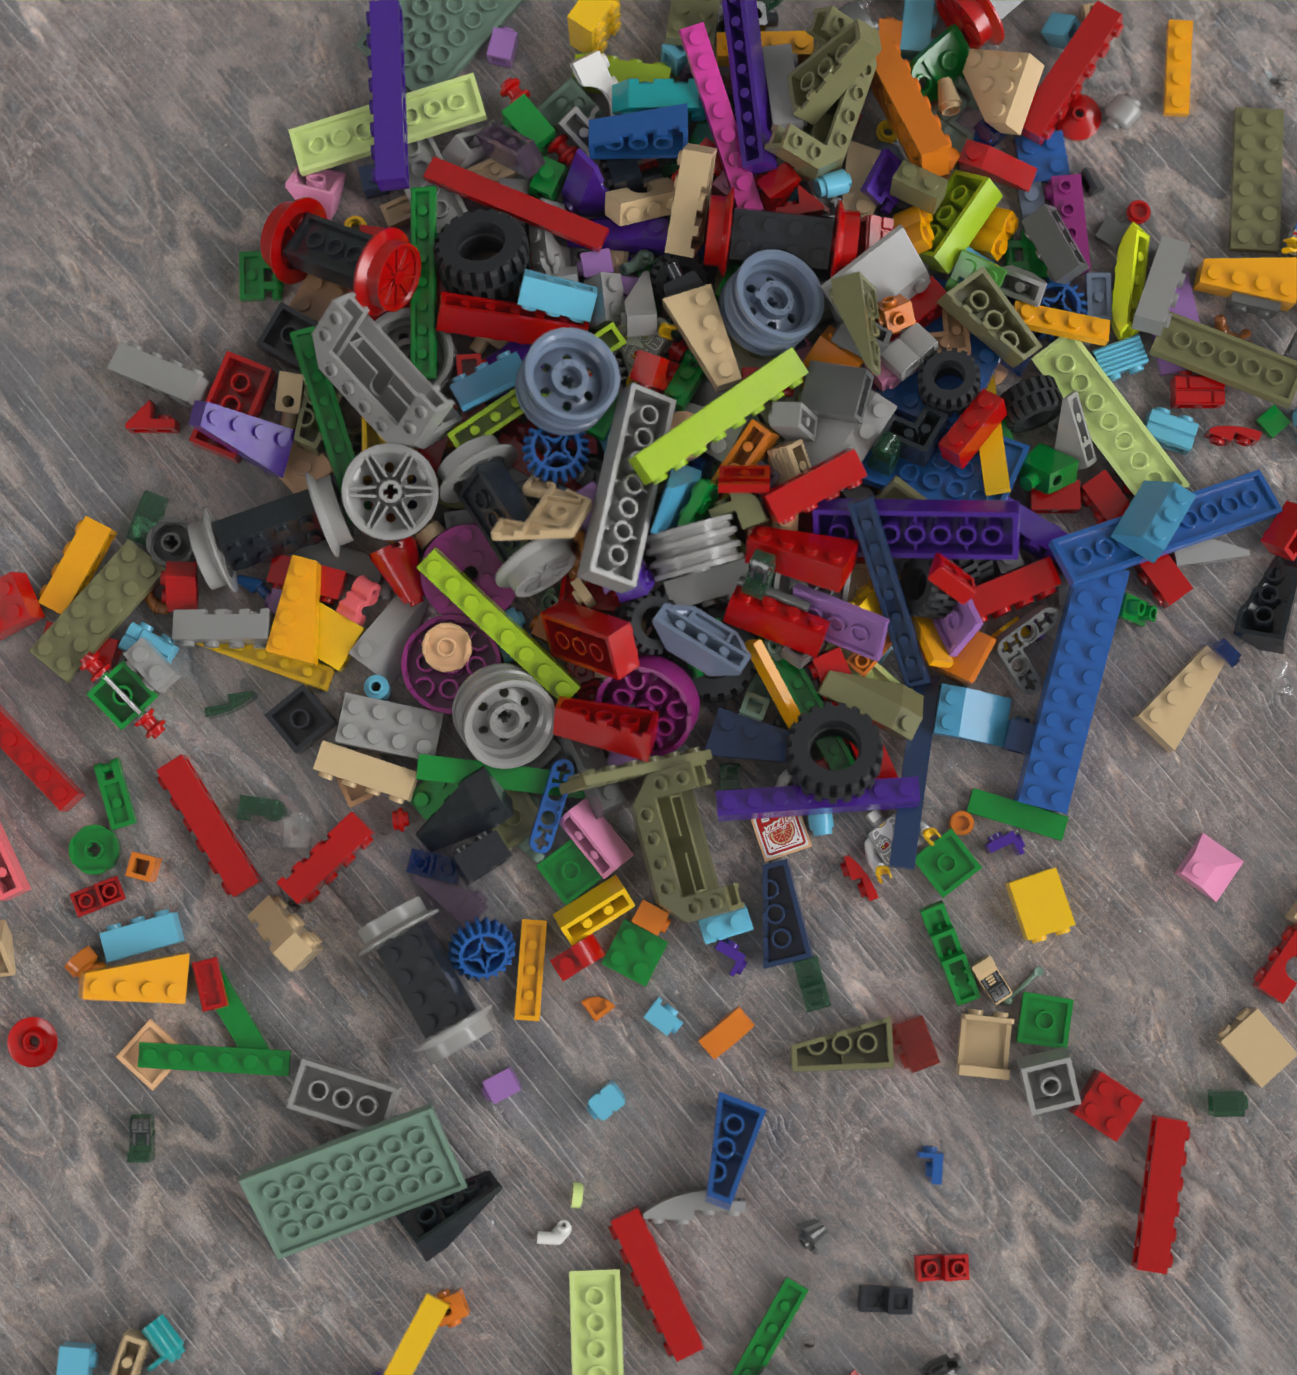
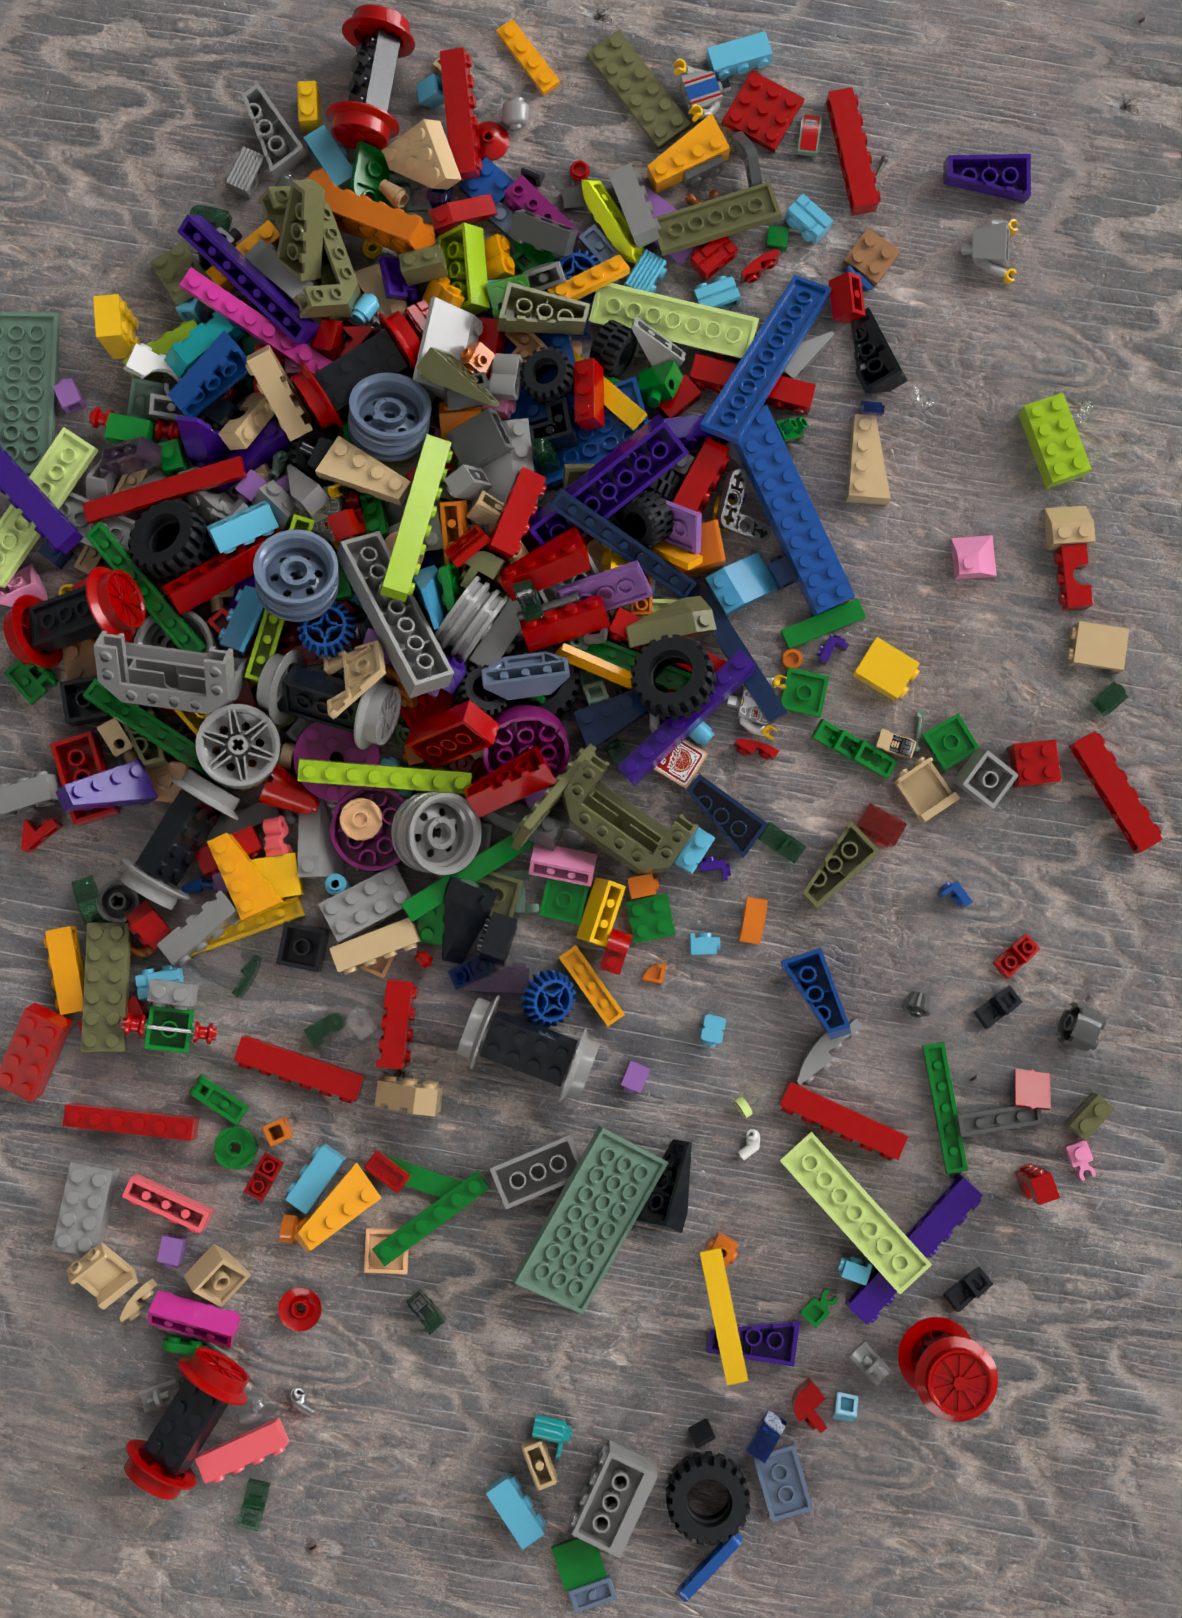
camera: 40 degrees left, 0 degrees up
(547, 804) = (512, 868): blue beam -> none
(582, 594) = (422, 710): tan plate -> none
(951, 579) = (657, 501): red slope -> none
(1153, 518) = (753, 357): dark azure slope -> none

